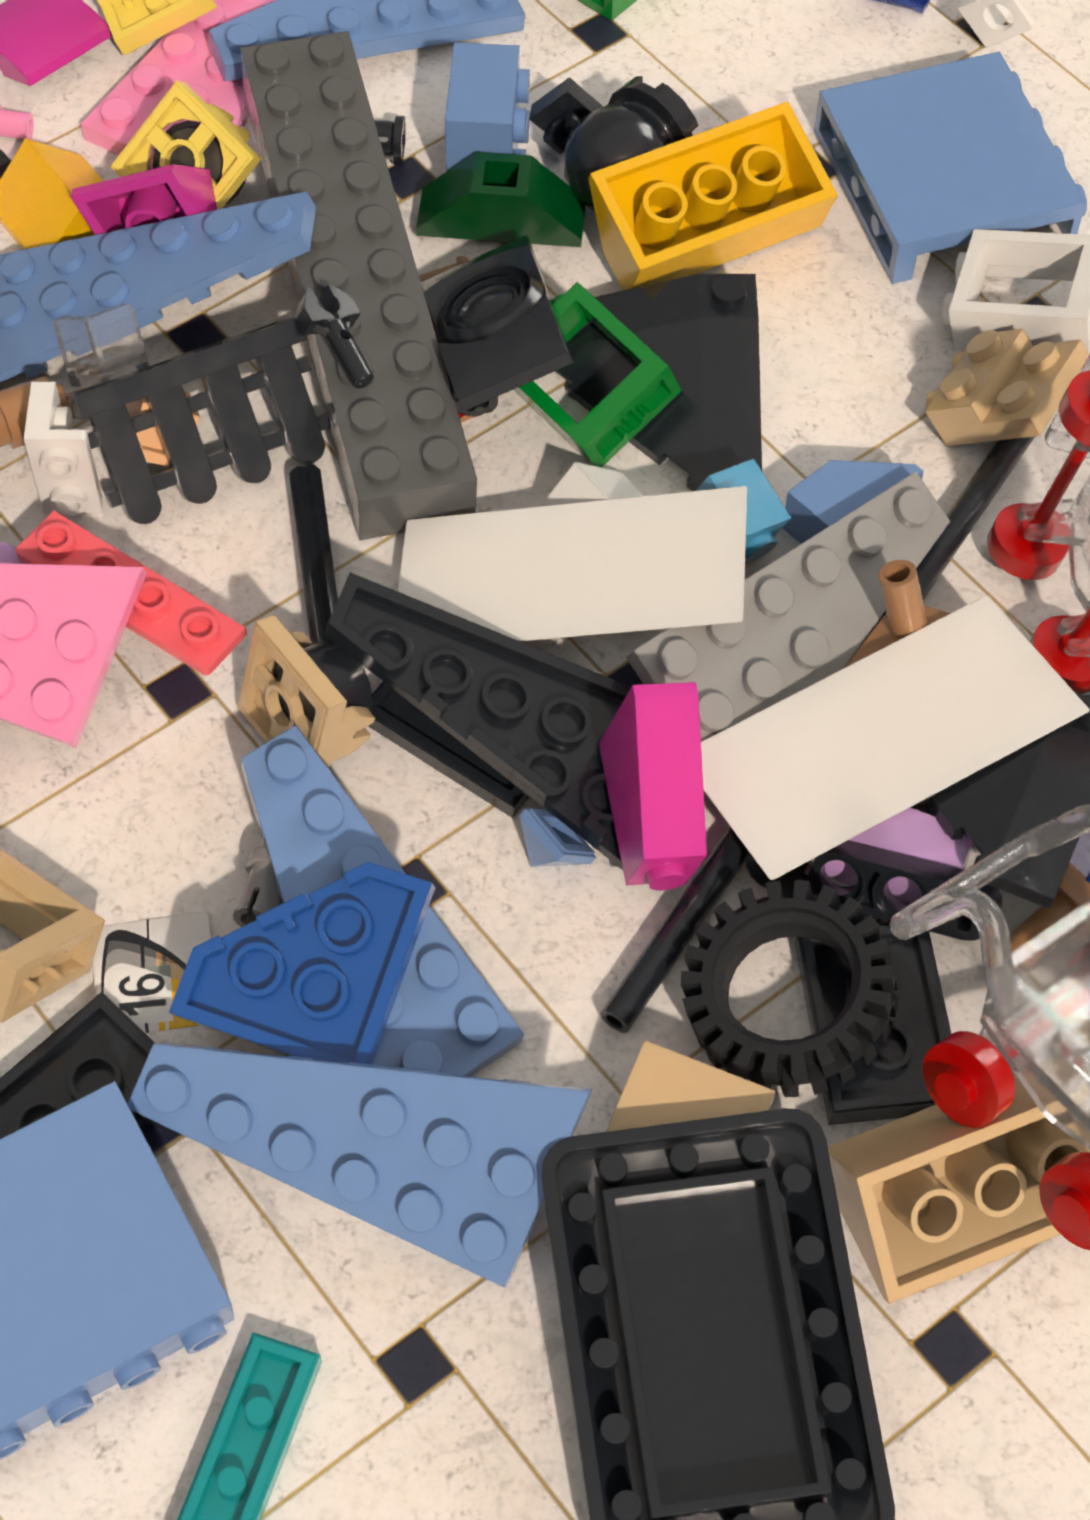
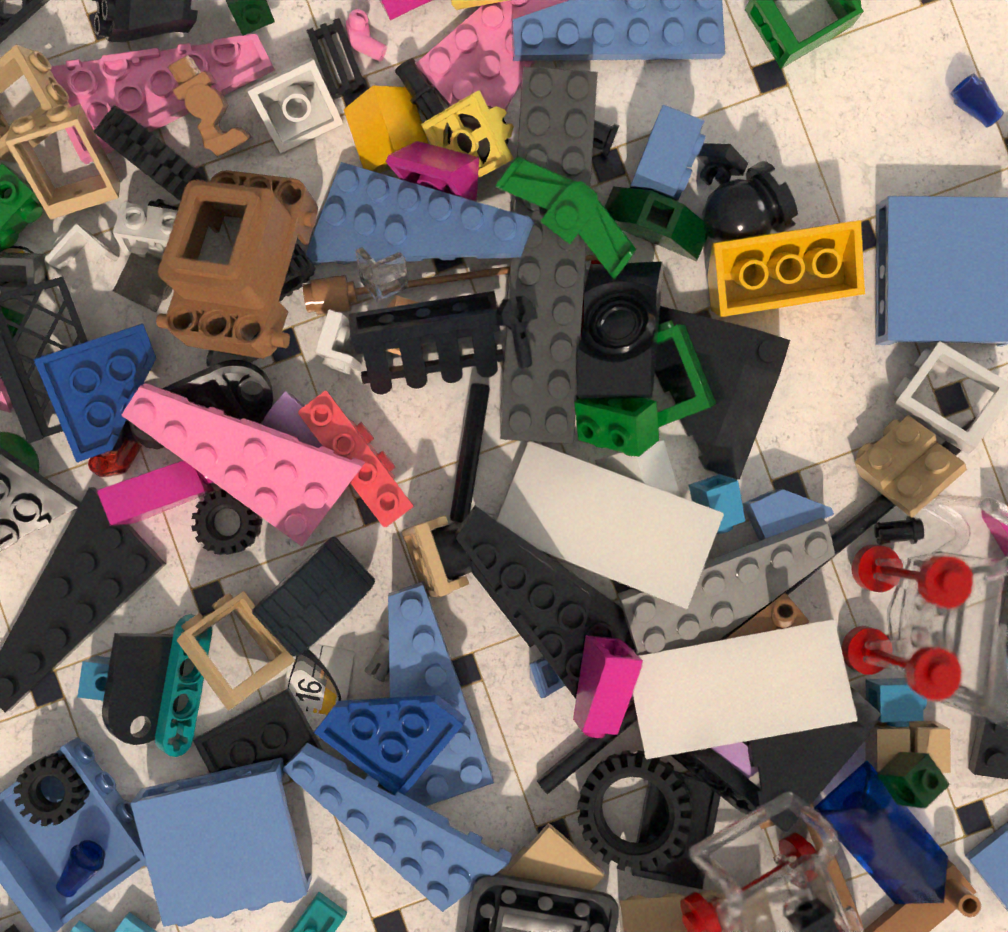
camera: 20 degrees right, 30 degrees up
(91, 143) = (419, 89): none -> black axle
(110, 788) = (314, 597): none -> black wheel
(363, 182) = (571, 211): none -> green plate
(534, 427) = (618, 423): none -> green brick
(1035, 485) = (899, 531): none -> black pin

